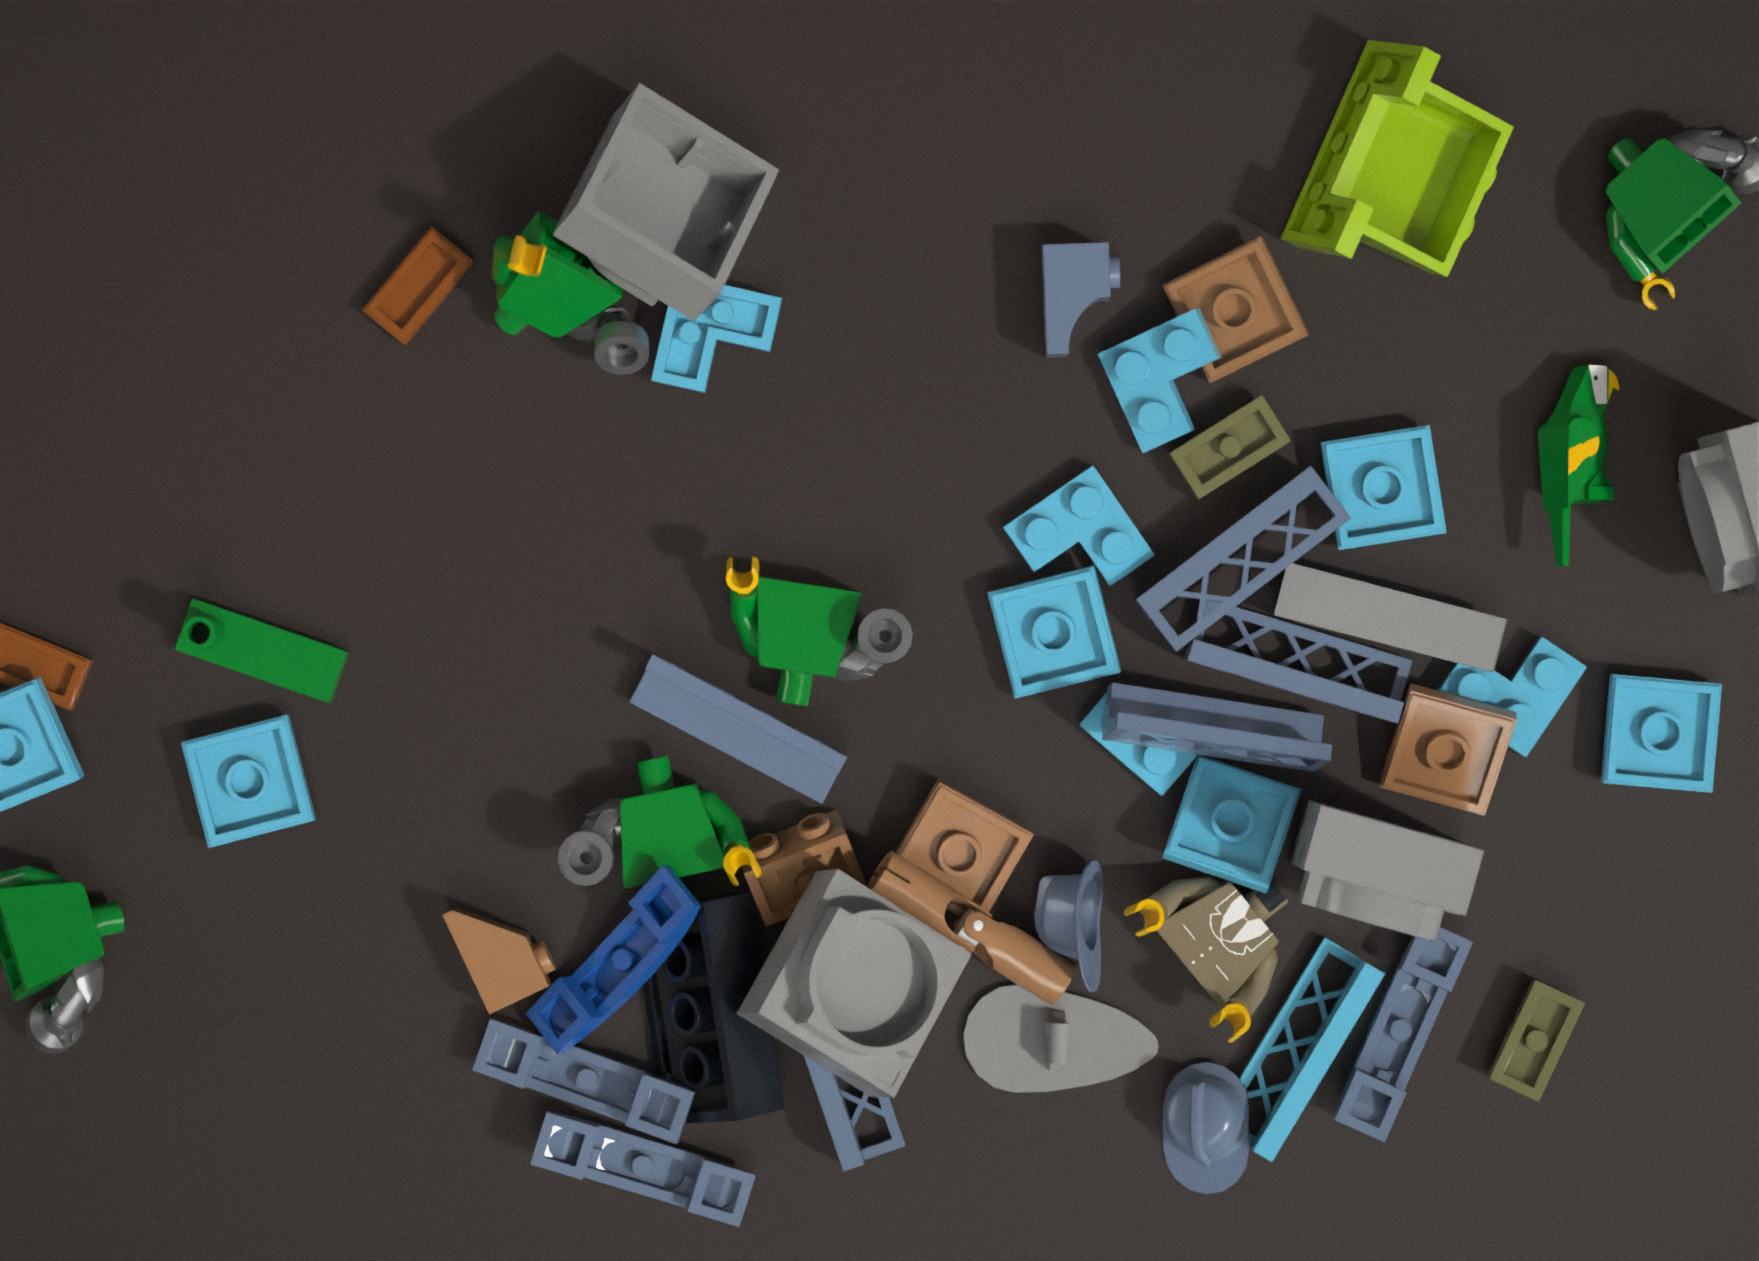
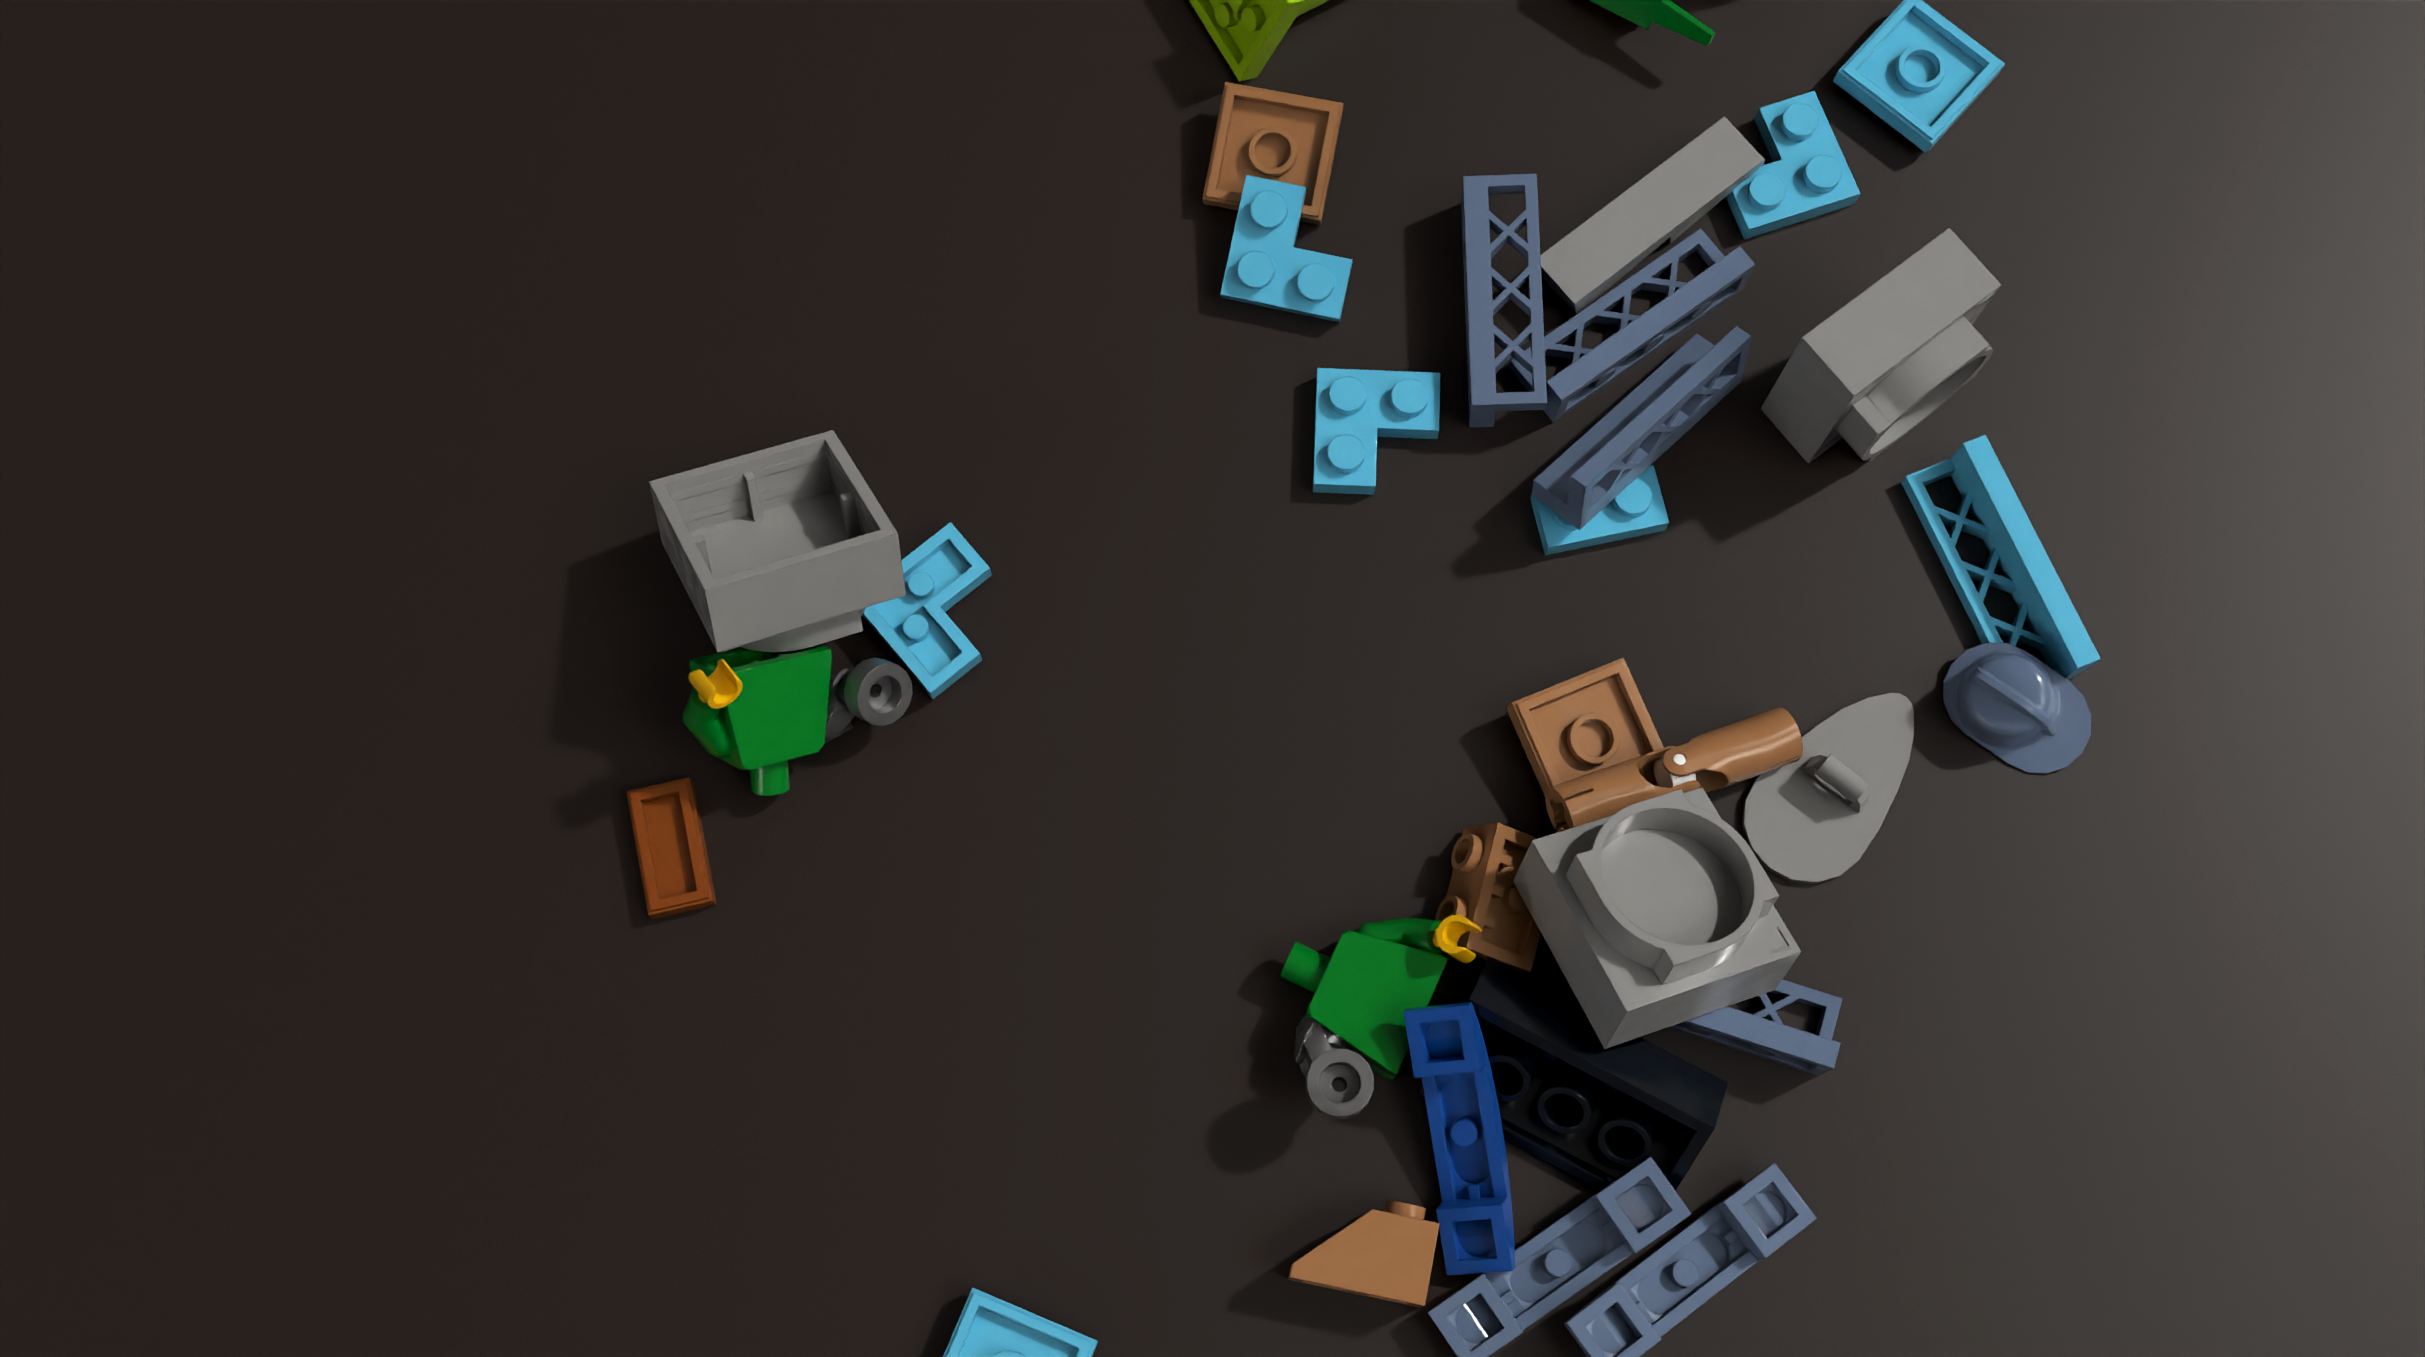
camera: 55 degrees left, 15 degrees down
(261, 650) = (890, 1267): green piece -> none
(738, 728) = (1318, 855): sand blue fence -> none
(808, 631) = (1273, 718): green torso -> none
(1054, 631) = (1445, 507): medium azure plate -> none
(1069, 918) = (1725, 683): sand blue piece -> none
(1071, 282) = (1137, 270): sand blue arch -> none
(1218, 940) = (1848, 564): dark tan torso -> none
(1229, 447) = (1391, 243): olive plate -> none
(1231, 823) = (1742, 477): medium azure plate -> none
(1384, 486) = (1528, 132): medium azure plate -> none
(1400, 1032) = (2044, 477): sand blue slope -> none
(1448, 749) = (1807, 249): medium nougat plate -> none
(1535, 1040) = (2132, 361): olive plate -> none

